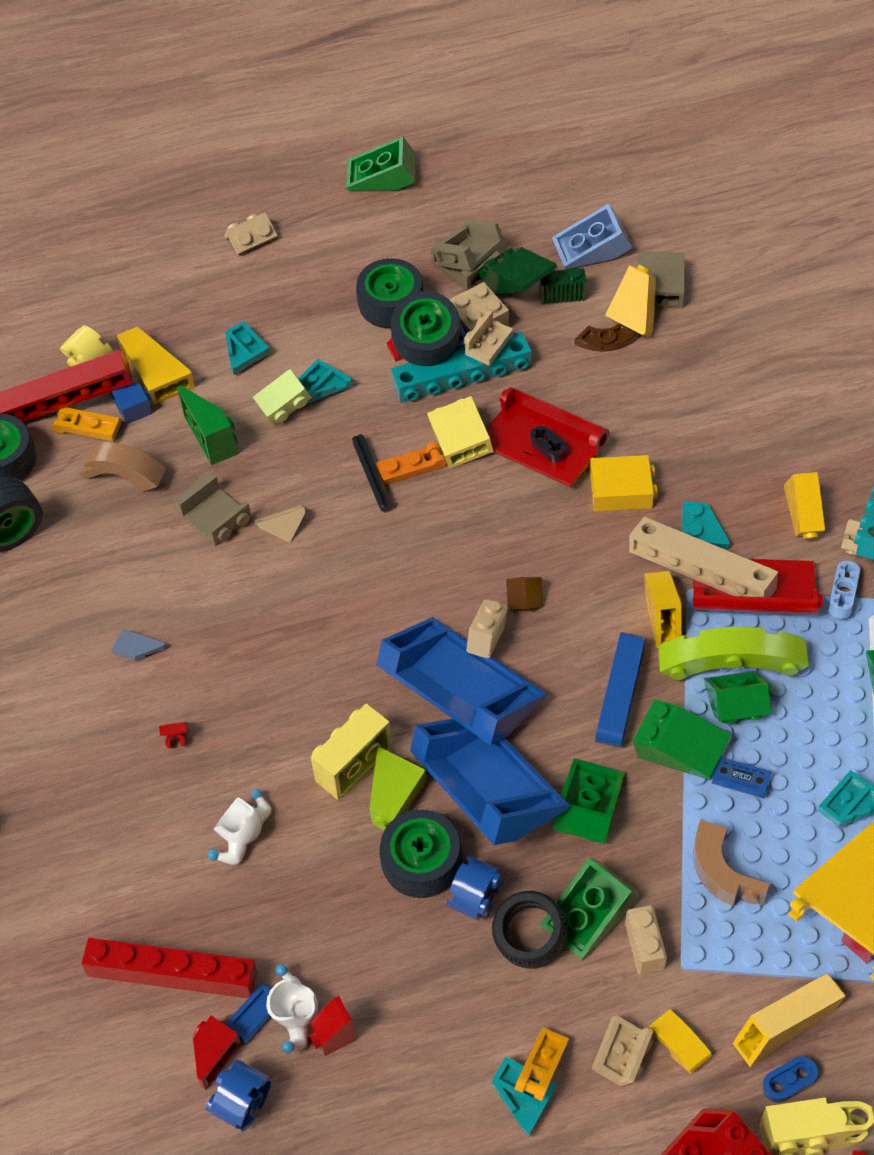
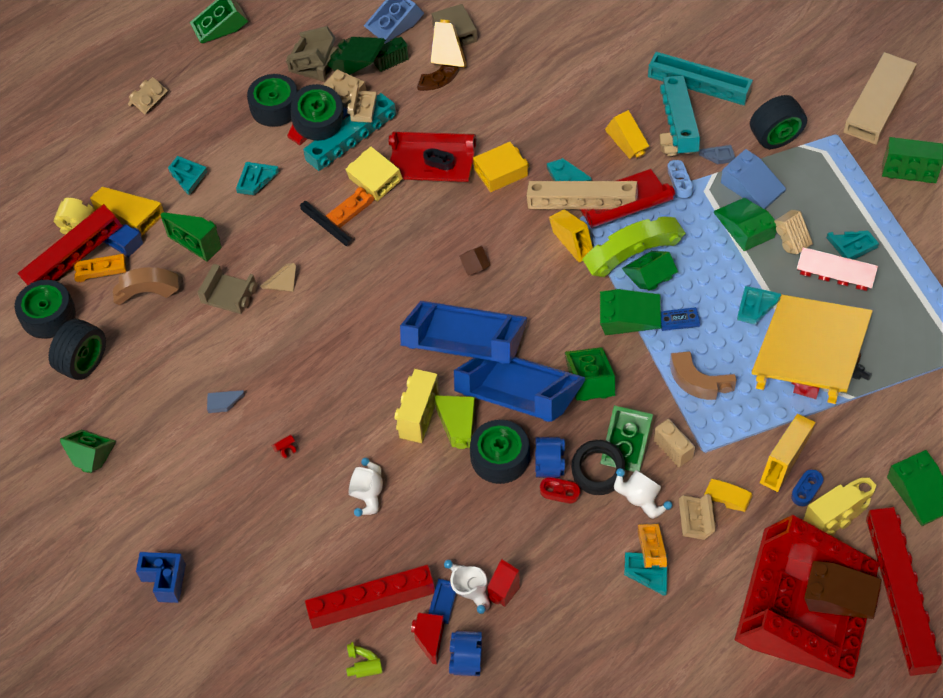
camera: 25 degrees left, 0 degrees up
(118, 1055) = (364, 668): none -> lime plant
(282, 397) = (236, 196): yellowish green brick -> none
(470, 937) = (560, 489): none -> red plate
(486, 628) = (464, 291): tan brick -> none
(565, 988) = (641, 492): none -> white piece
(620, 689) = (572, 296): blue beam -> none

